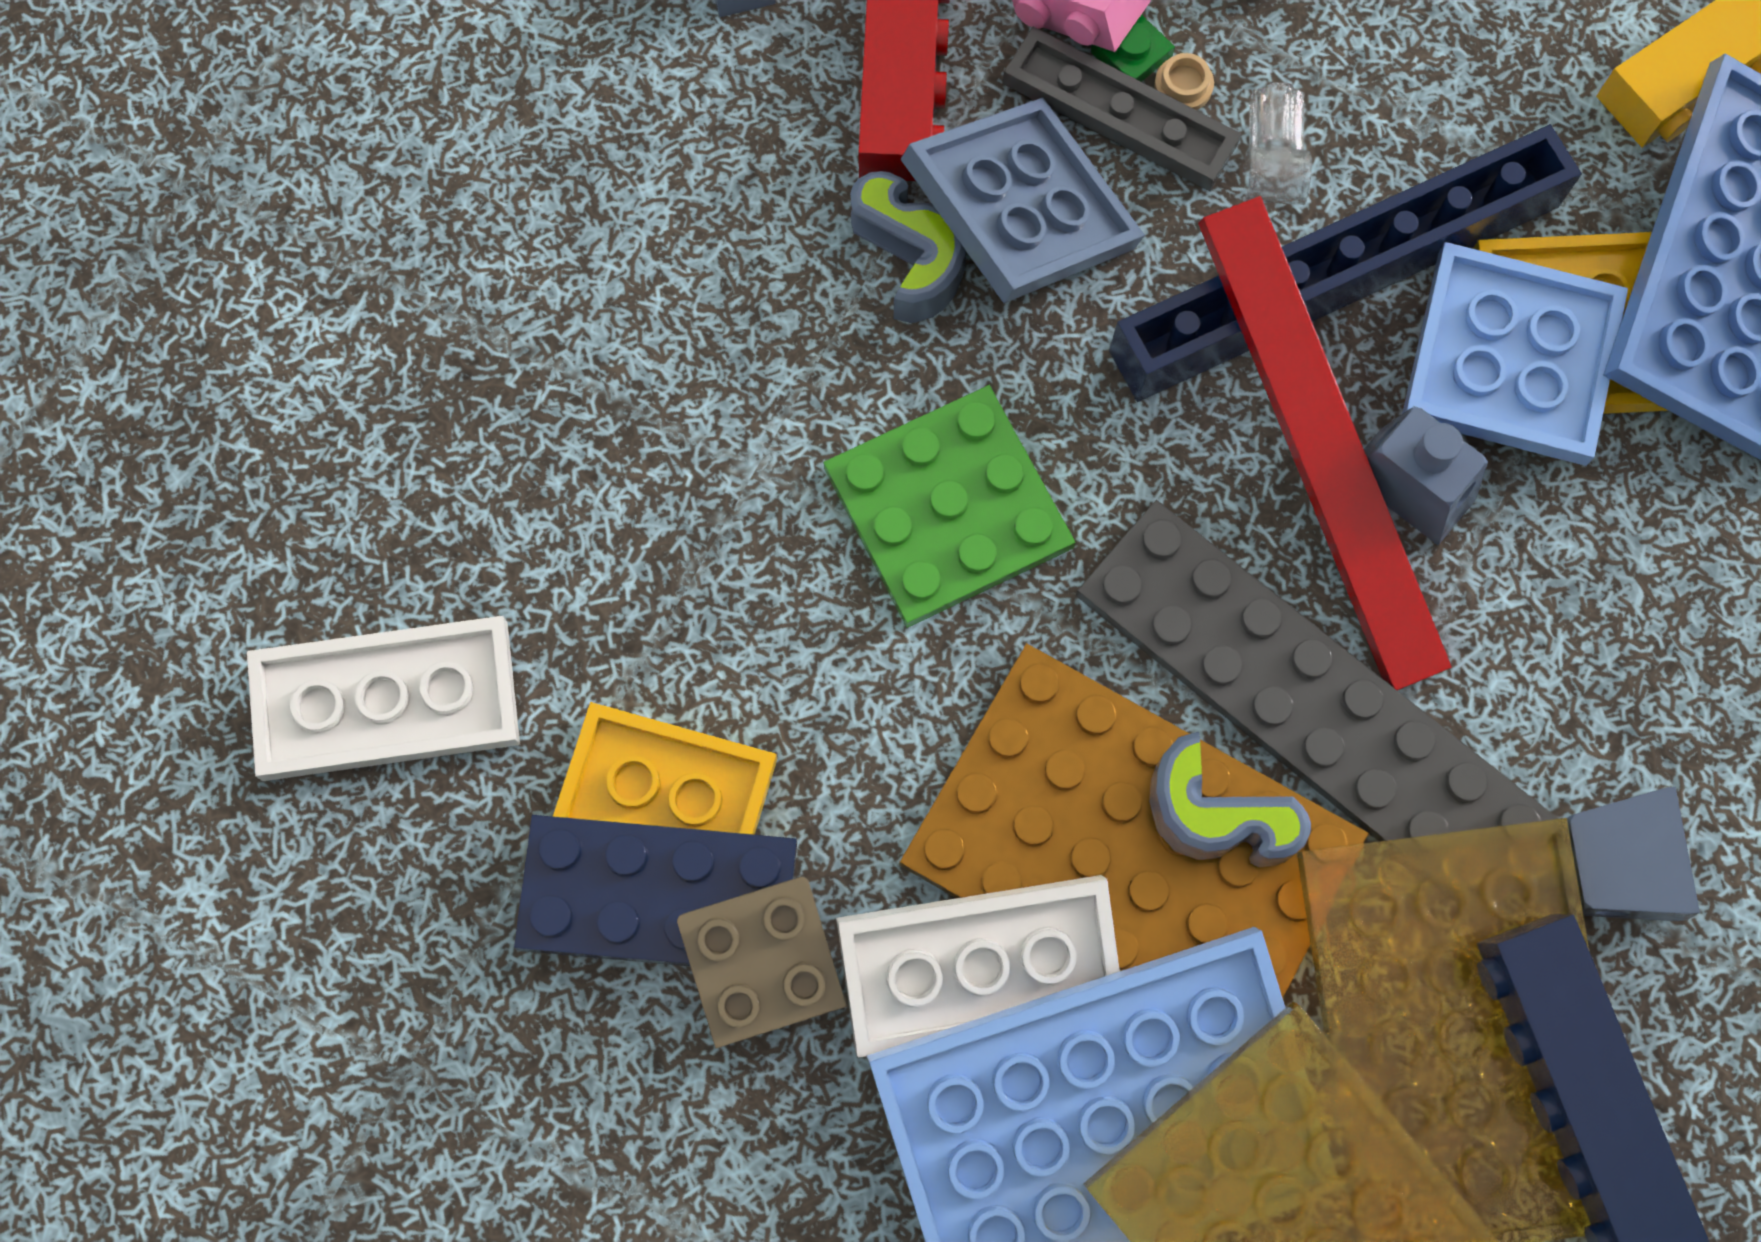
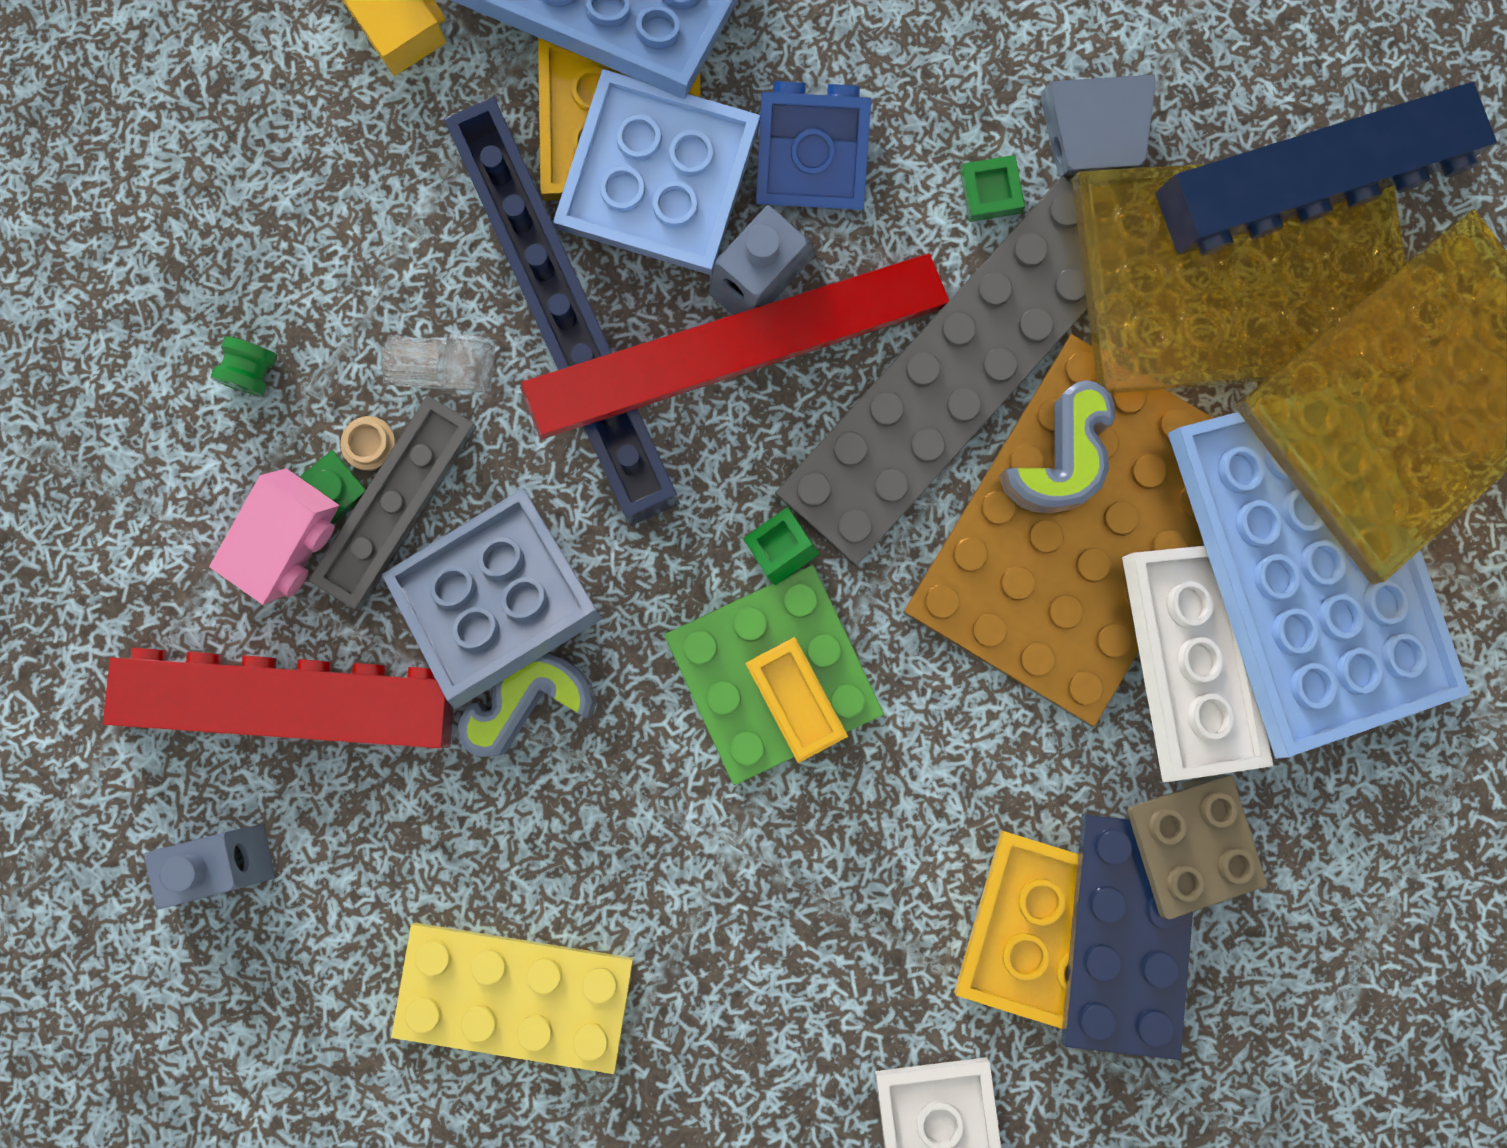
camera: 85 degrees left, 10 degrees up
(593, 248) = (512, 998): none -> light yellow plate
(920, 518) = (796, 700): none -> yellow tile
(1094, 505) = (781, 546): none -> green plate
(1537, 738) = (992, 188): none -> green plate
(1565, 530) = (813, 147): none -> blue plate

